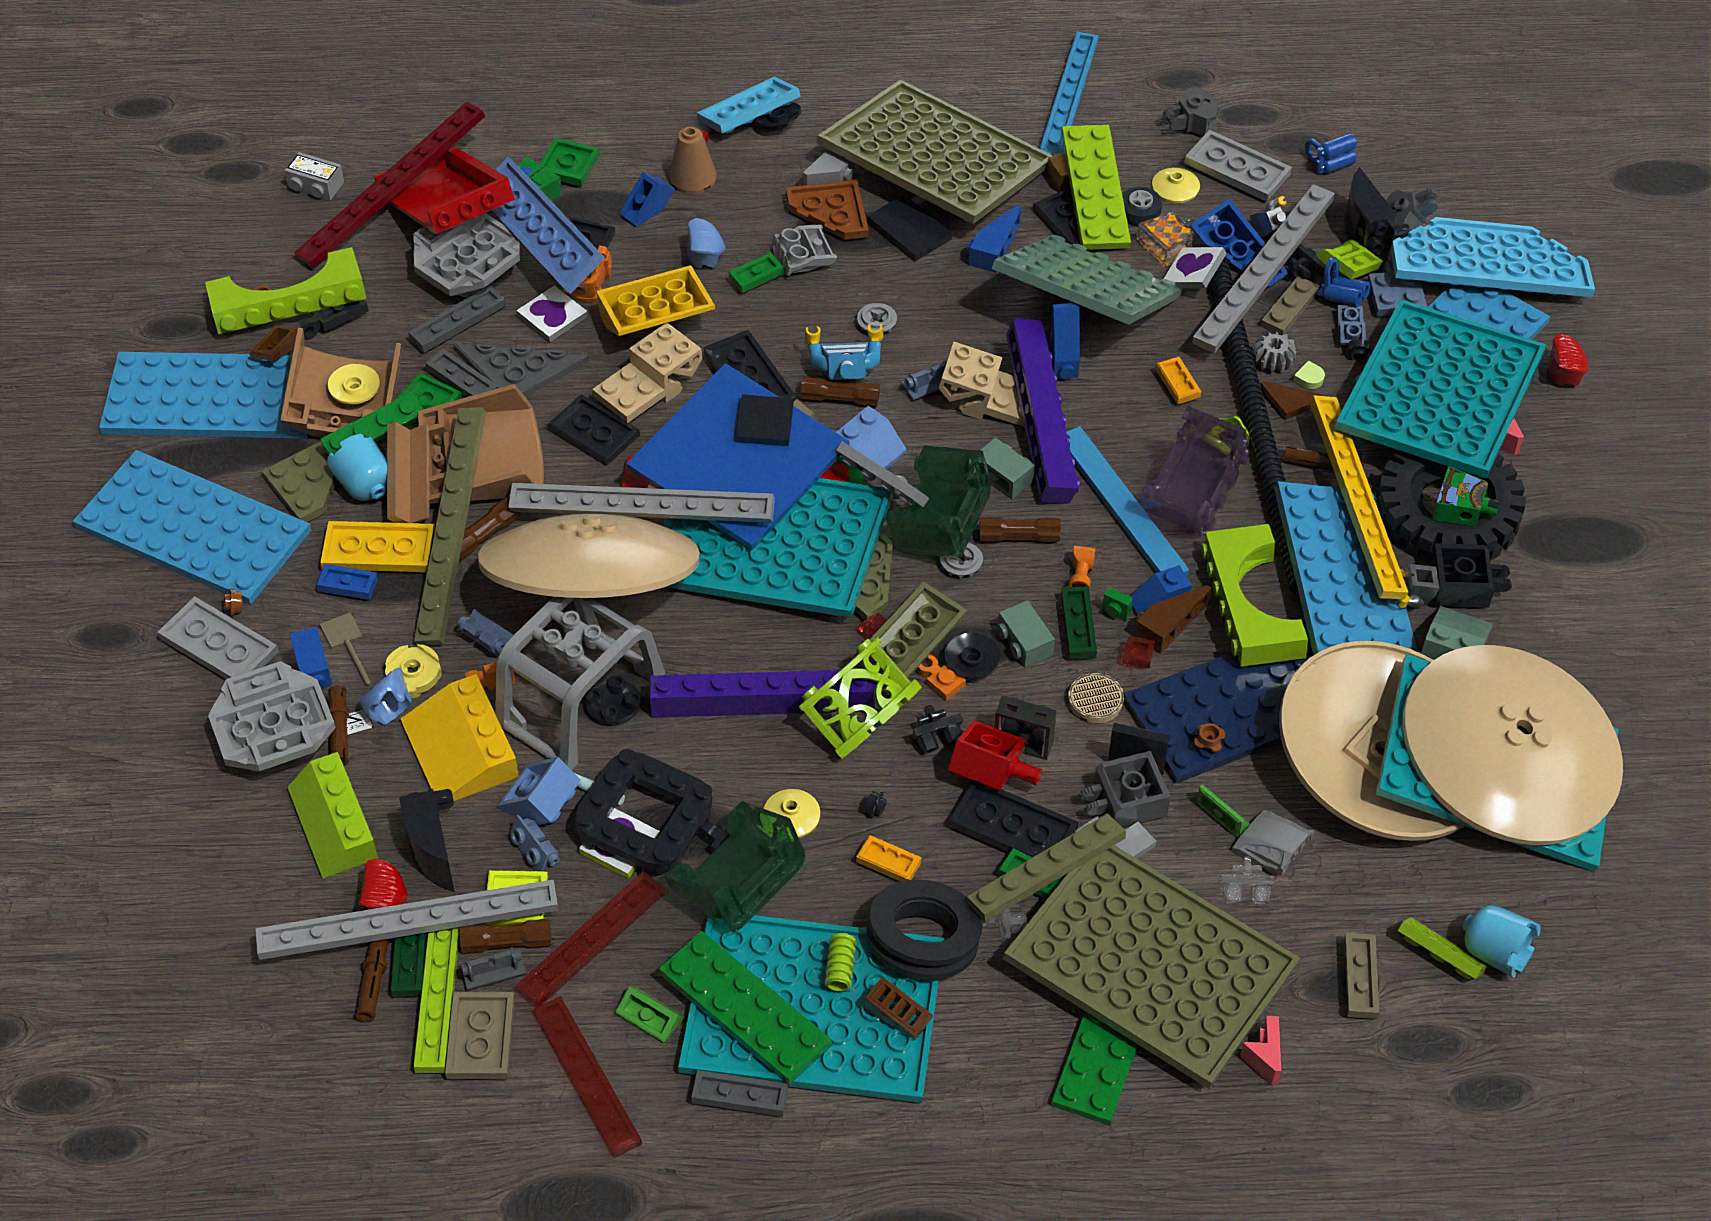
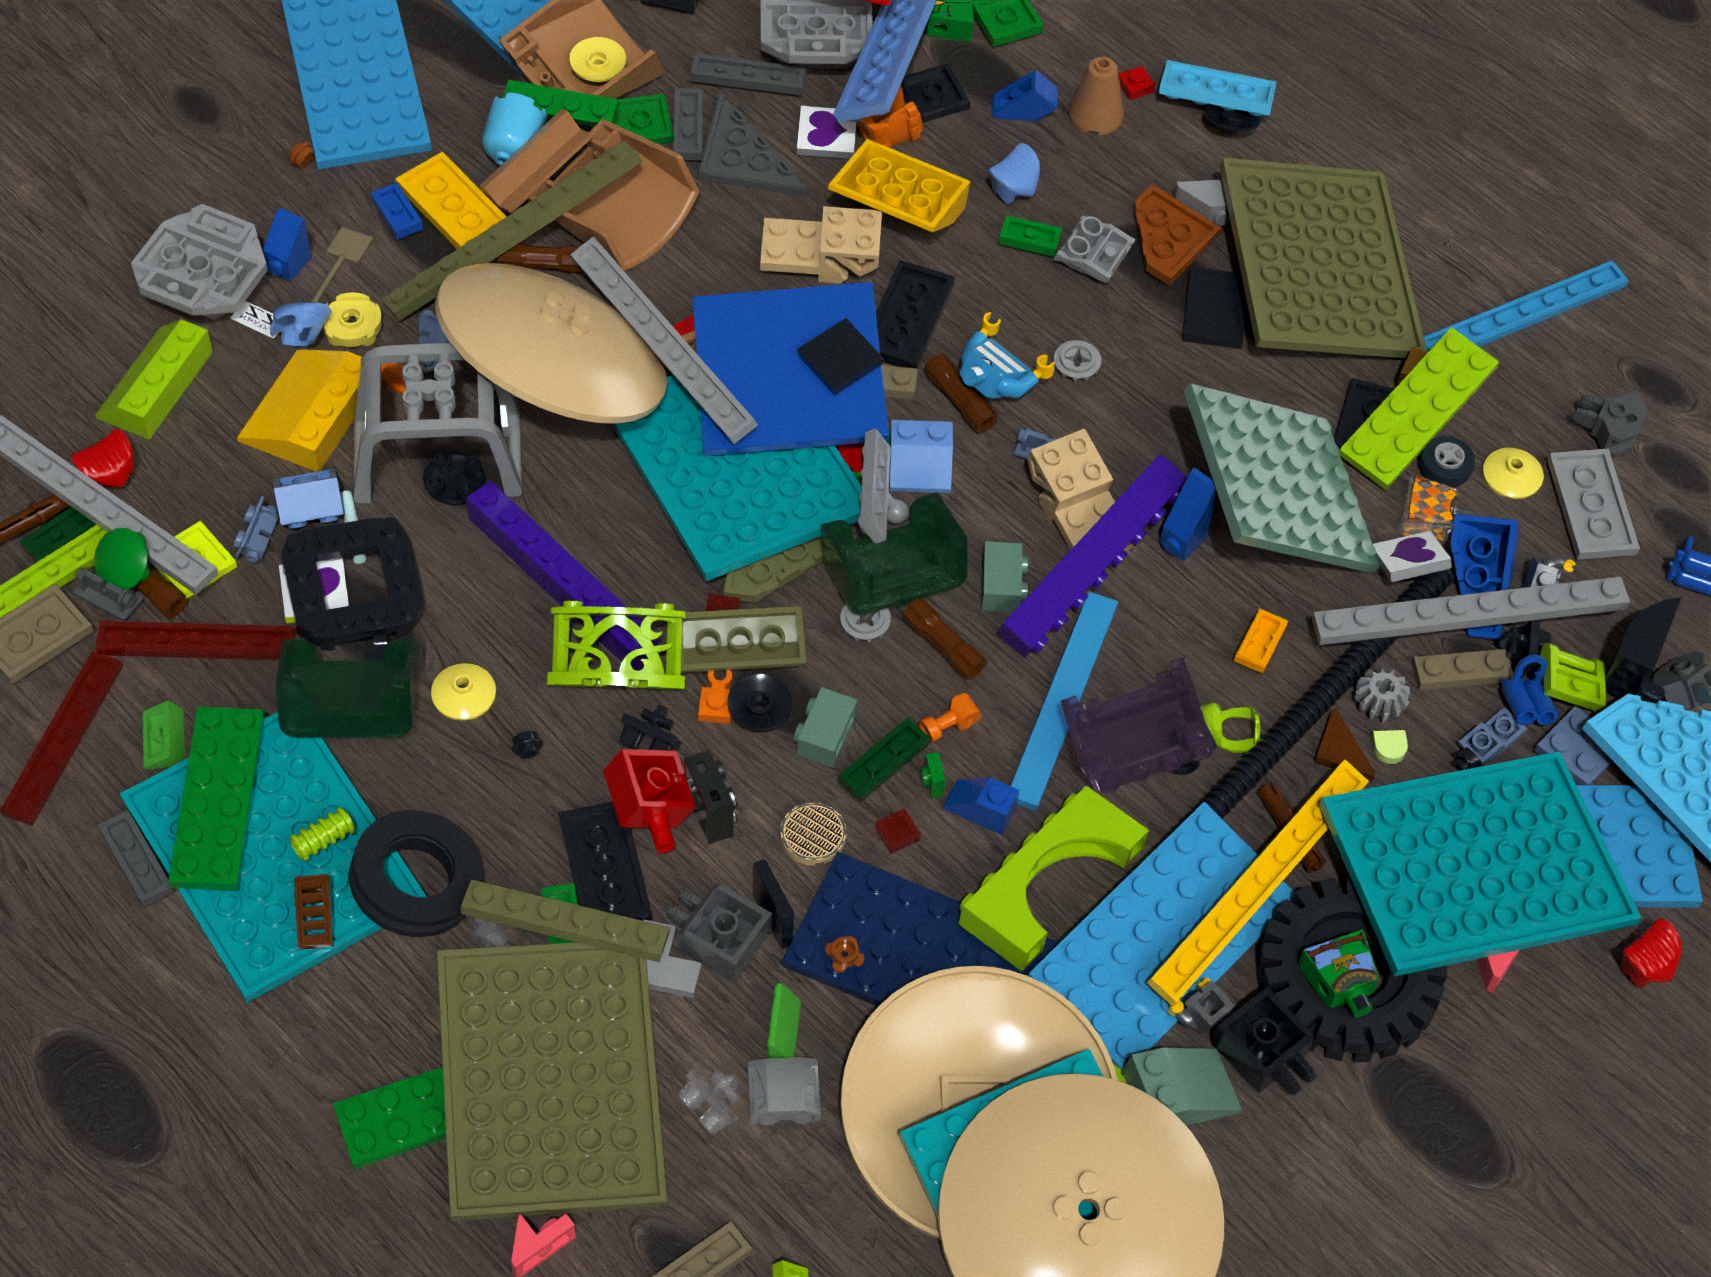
camera: 45 degrees right, 5 degrees up
(216, 640) = (254, 173): light grey plate -> none
(303, 482) = (464, 108): olive plate -> none
(339, 713) = (256, 305): reddish brown pin -> none
(426, 834) = (187, 449): black piece -> none
(483, 931) = (122, 558): none -> green dish
(593, 430) = (731, 254): black tile -> none
(888, 859) = (476, 797): light orange plate -> none
(994, 240) = (1272, 379): blue slope -> none
(1169, 617) = (958, 828): reddish brown slope -> none

